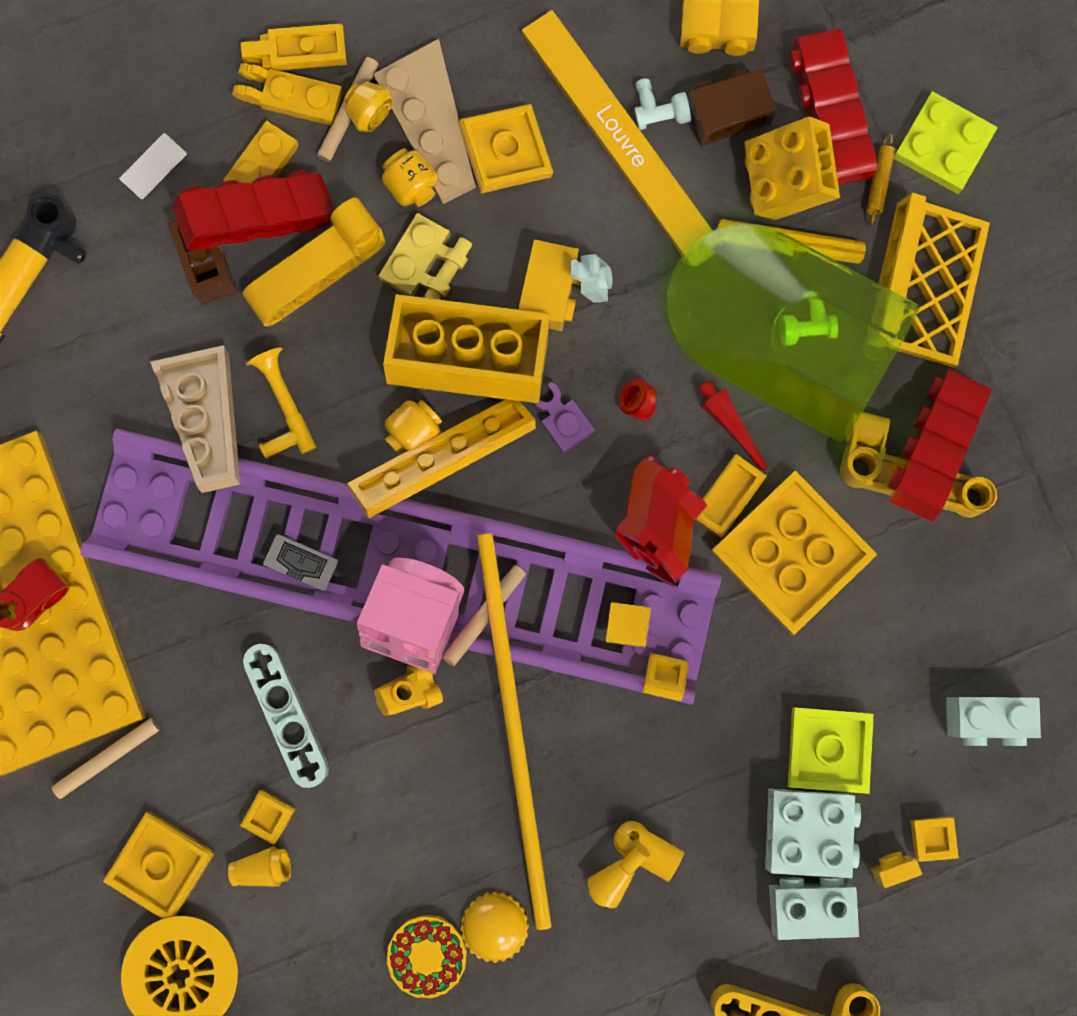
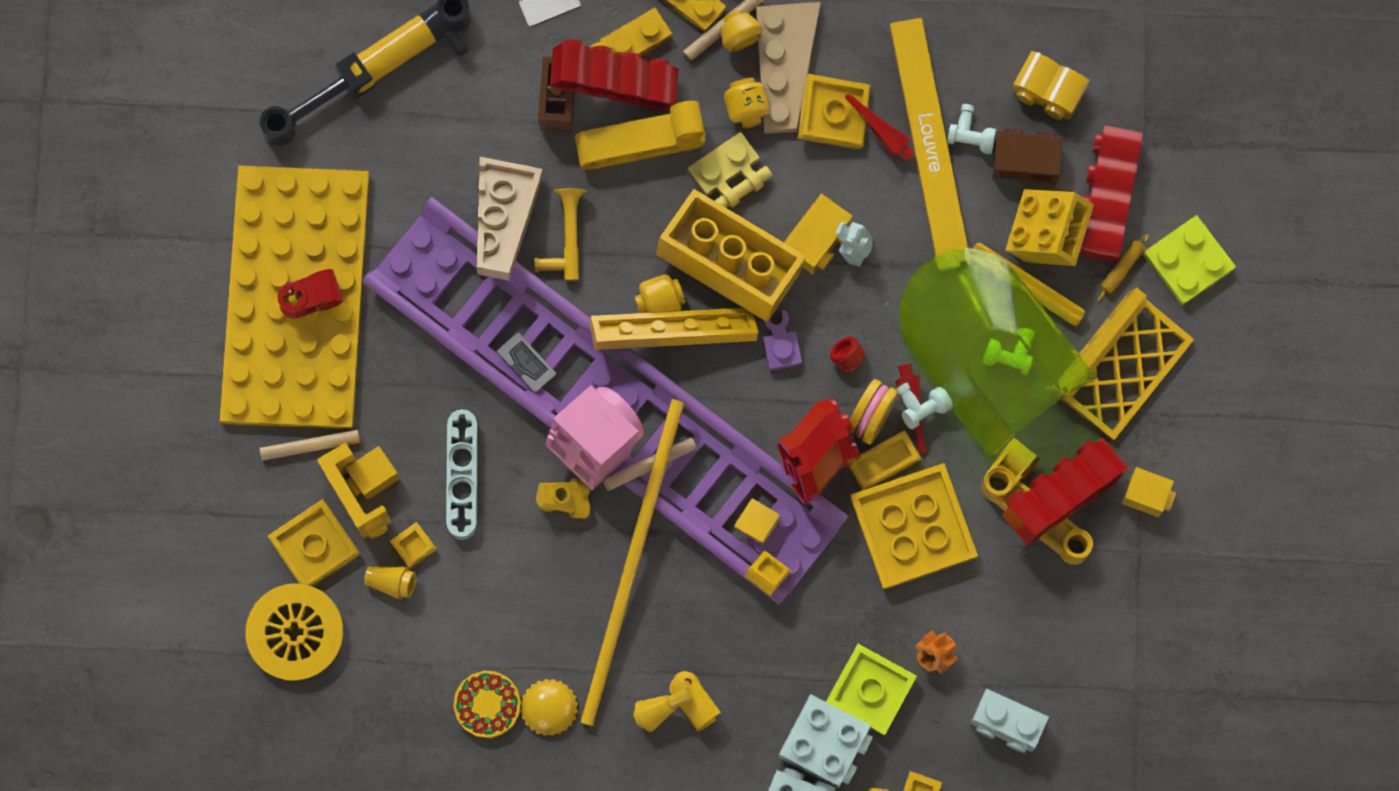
camera: 25 degrees right, 5 degrees down
(143, 785) = (334, 467): none -> yellow panel
(186, 761) = (371, 474): none -> yellow brick
(577, 149) = (890, 138): none -> red piece
(697, 448) = (873, 411): none -> yellow head
(758, 407) = (938, 402): none -> light aqua piece
(882, 678) = (936, 652): none -> orange gear
(1021, 405) = (1149, 492): none -> yellow brick

